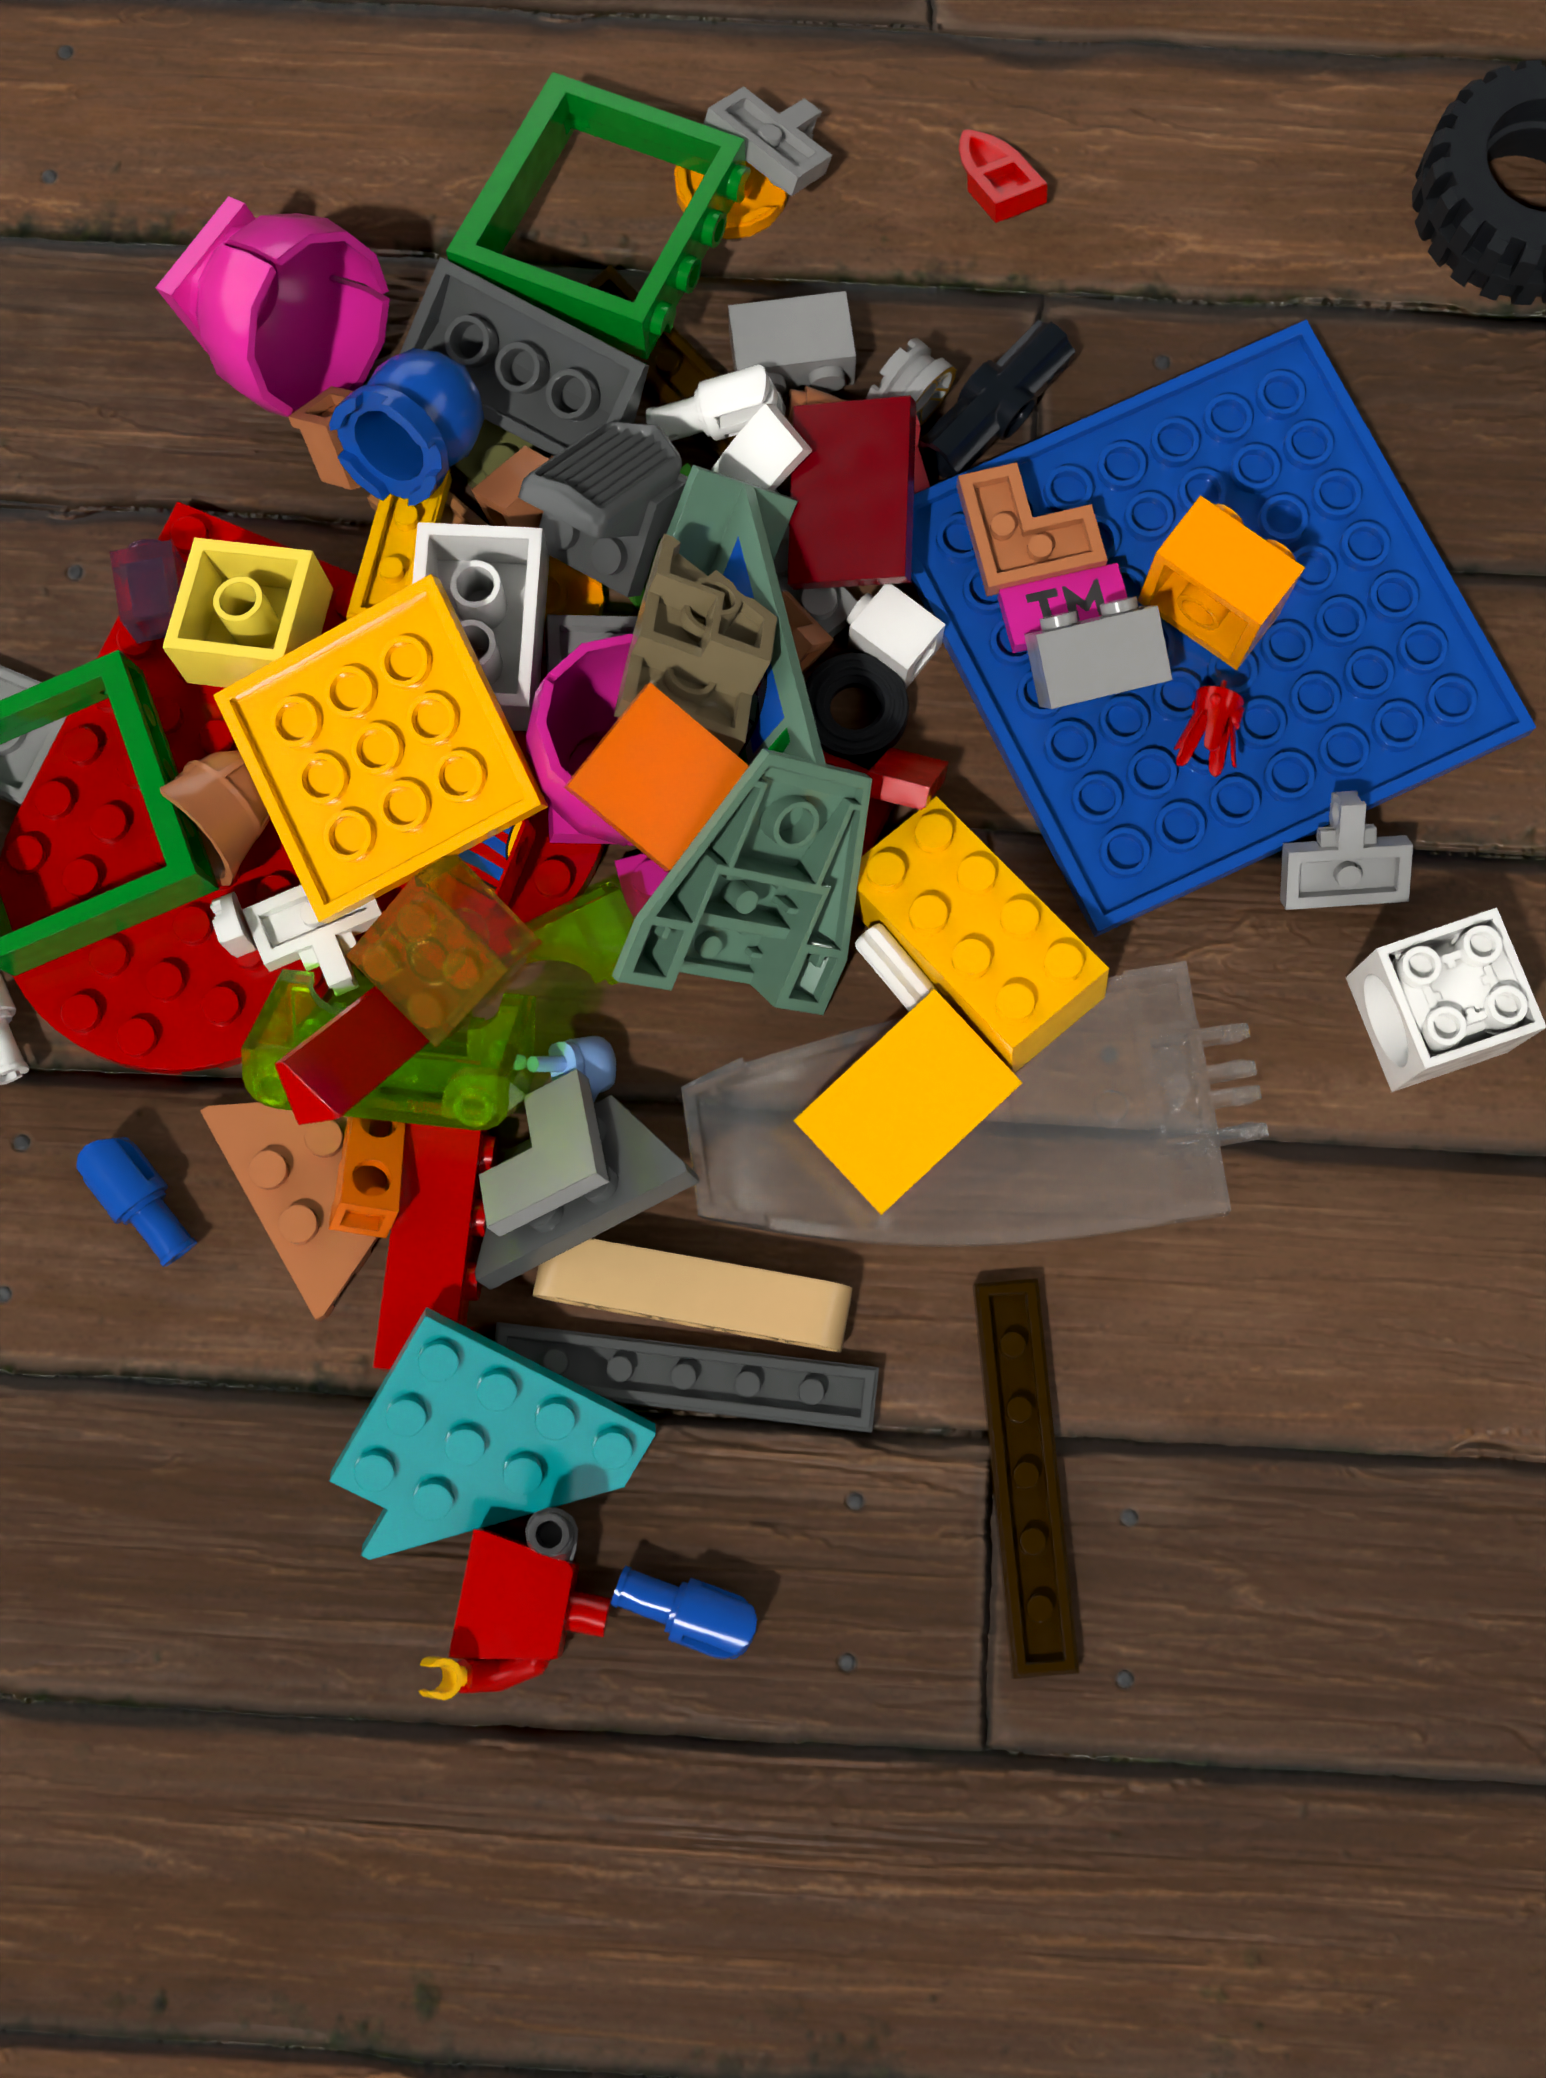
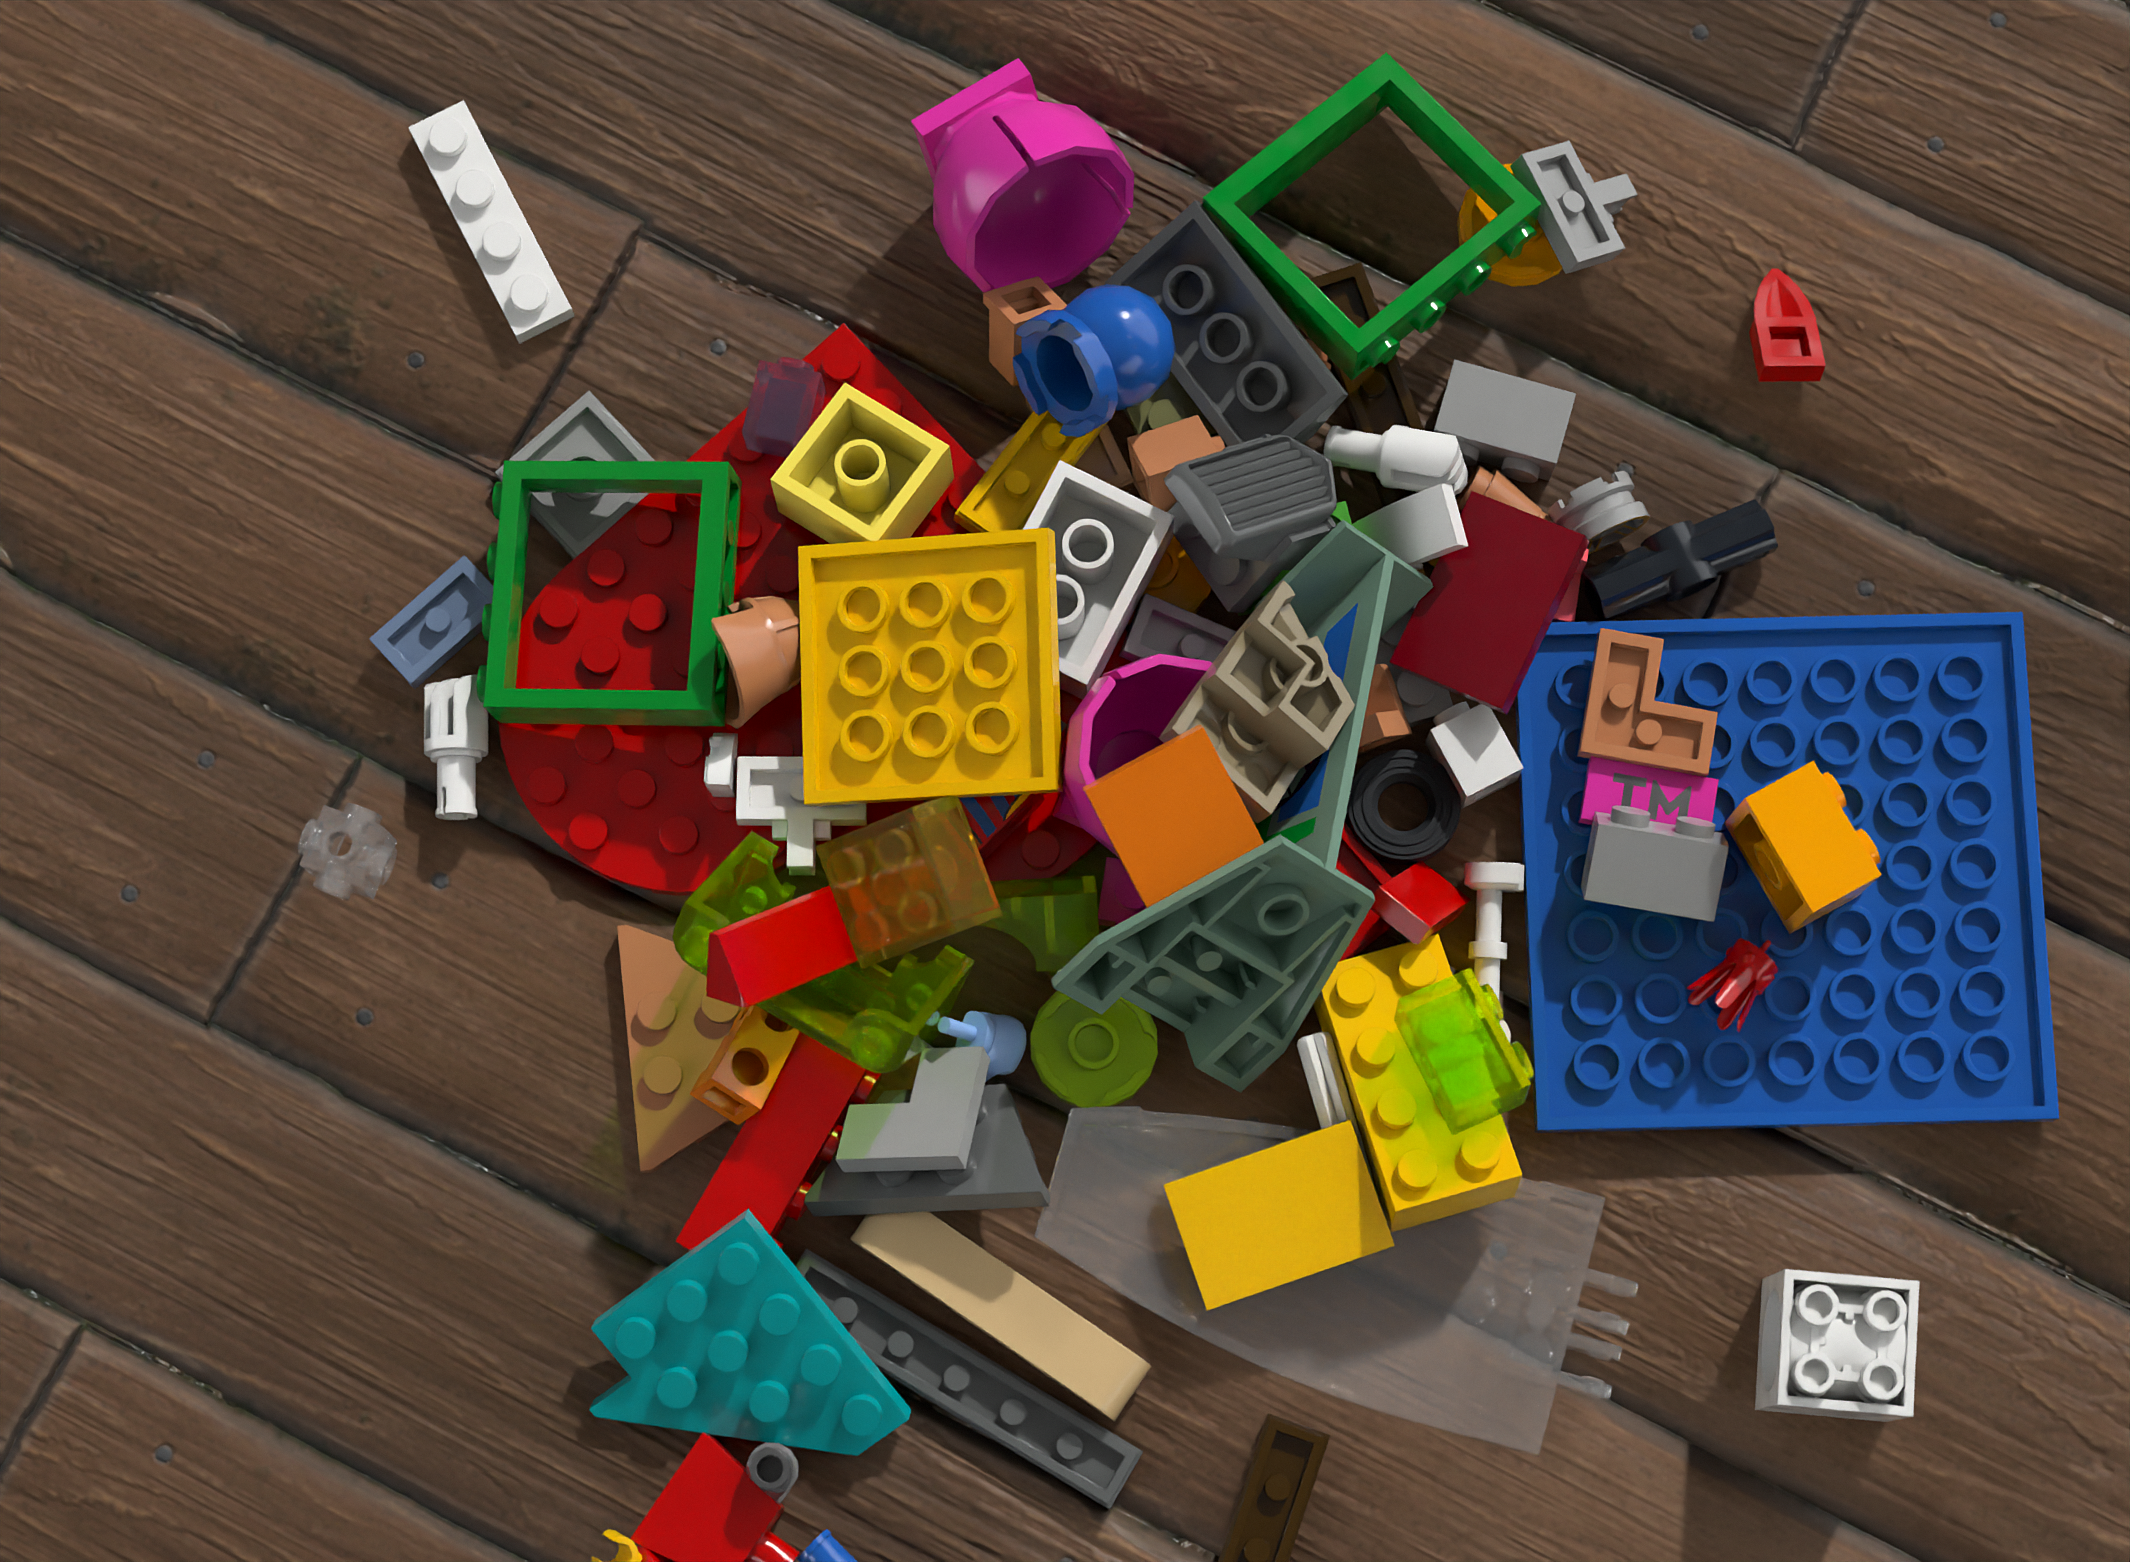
camera: 25 degrees right, 0 degrees up
(134, 1194) = (524, 977): blue arm -> none
(675, 1034) = (1090, 1055): none -> lime tile
(959, 737) = (1490, 881): none -> white piece
(1009, 879) = (1463, 1050): none -> clear neon green brick
(1346, 862) = (1809, 1169): light grey hinge -> none

